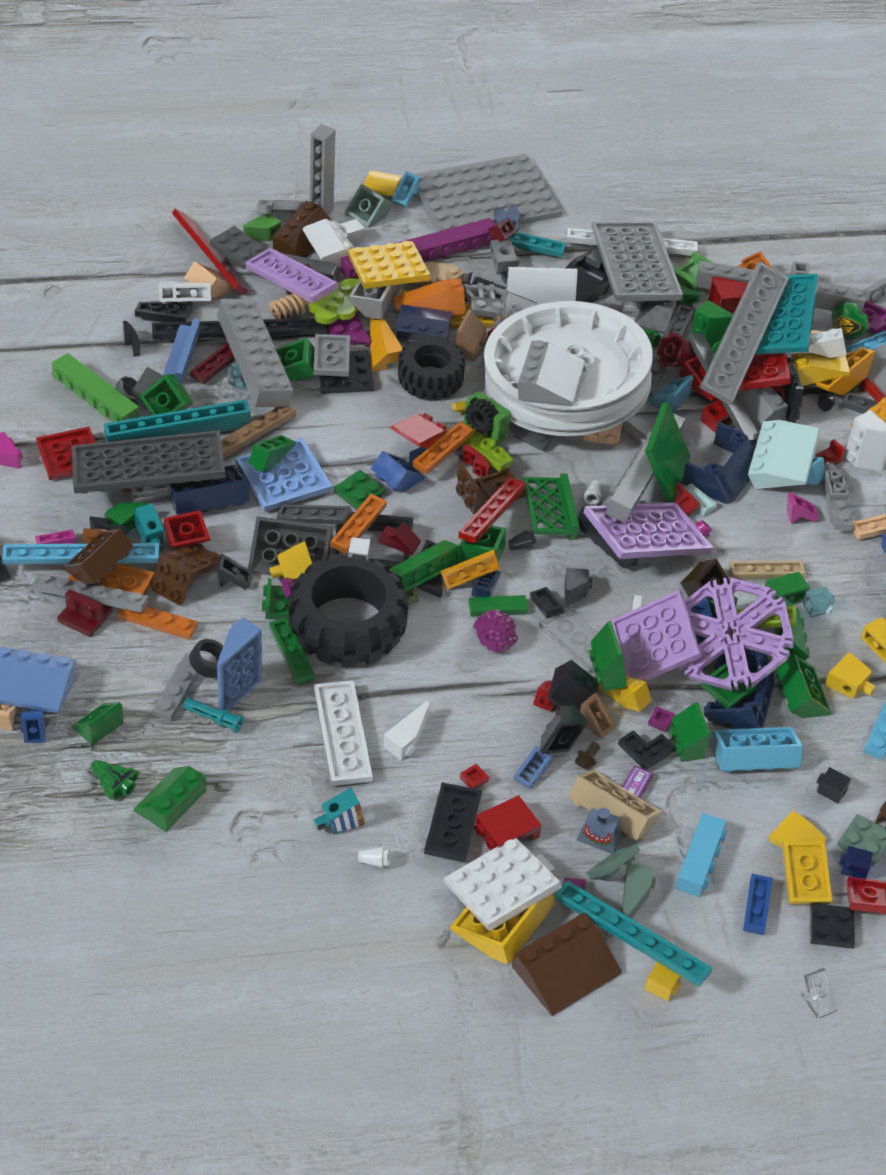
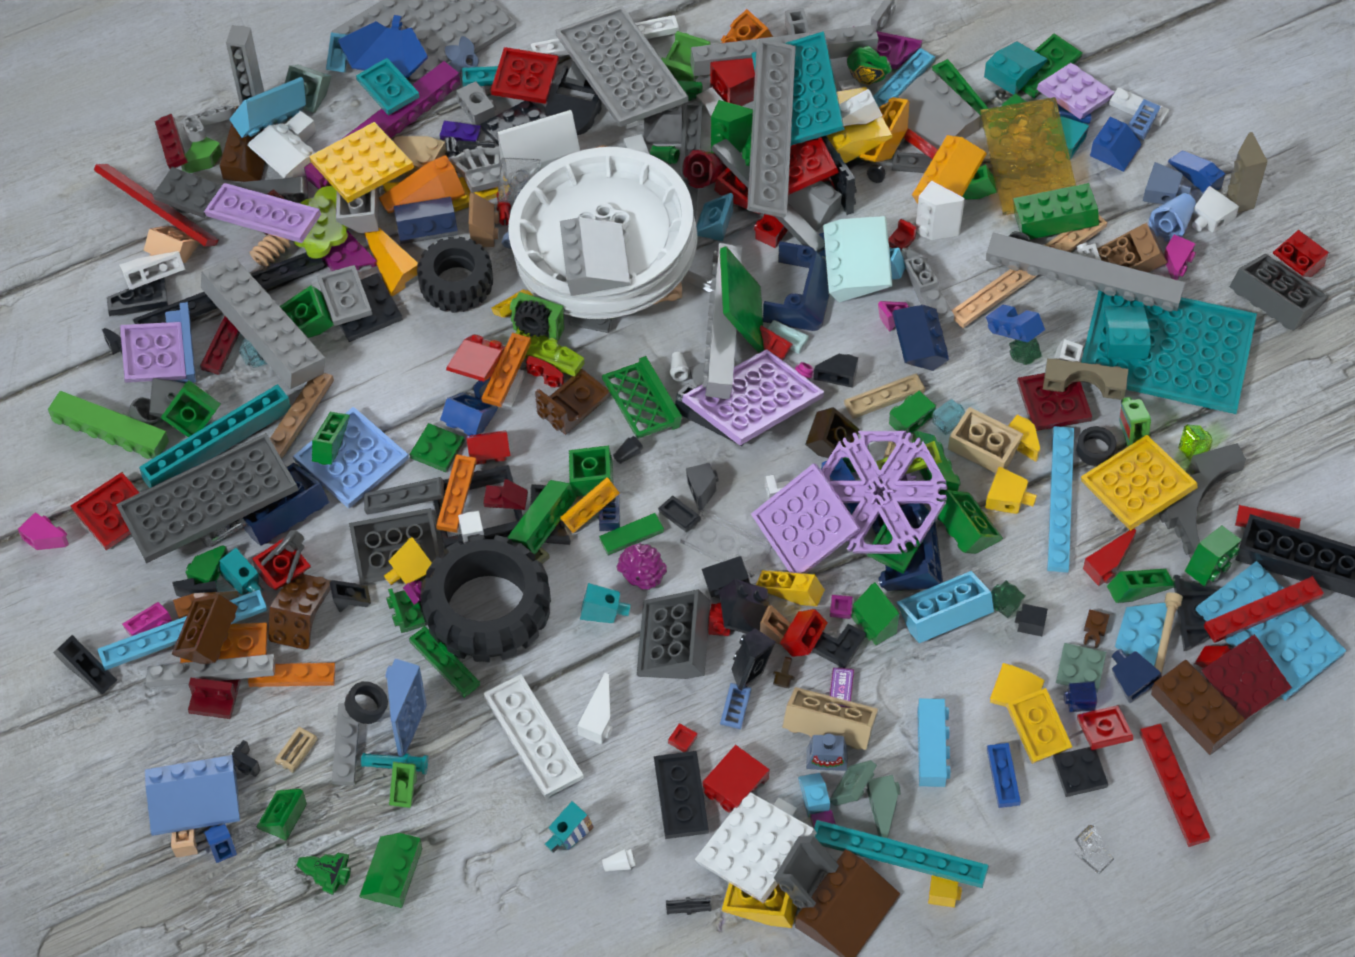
camera: 15 degrees left, 10 degrees up
(84, 669) = (245, 763): none -> black bracket
(136, 679) = (286, 764): none -> tan tile
(155, 347) = (152, 352): none -> lavender plate
(201, 514) = (291, 542): none -> dark grey plant
(211, 730) = (402, 784): none -> bright green slope
(242, 210) = (171, 141): none -> dark red plate
(331, 205) = (269, 108): none -> medium azure slope
(382, 182) = (307, 50): yellow slope -> none
(403, 500) = (488, 446): none -> red brick
(421, 914) = (688, 905): none -> black pin
(435, 220) = (387, 86): none -> teal plate
(443, 196) = (376, 42): none -> blue panel
(447, 648) = (602, 604): none -> teal torso
(482, 272) = (460, 131): none -> dark purple plate
(491, 510) = (587, 429): red plate -> none
(501, 694) = (674, 636): none -> dark grey slope
(502, 230) = (464, 74): dark red slope -> none
(537, 914) = (804, 870): none -> dark grey panel
(552, 246) = (524, 75): none -> red plate
(561, 654) = (723, 573): none -> black brick
(574, 861) = (814, 793): none -> medium azure slope
(607, 659) = (768, 563): green slope -> none
(618, 727) = (803, 633): none -> red brick
(732, 536) = (837, 370): none -> black slope
(816, 531) = (921, 336): none -> dark blue slope
(816, 759) = (1006, 598): none -> clear green brick
(843, 628) = (984, 440): none -> tan slope

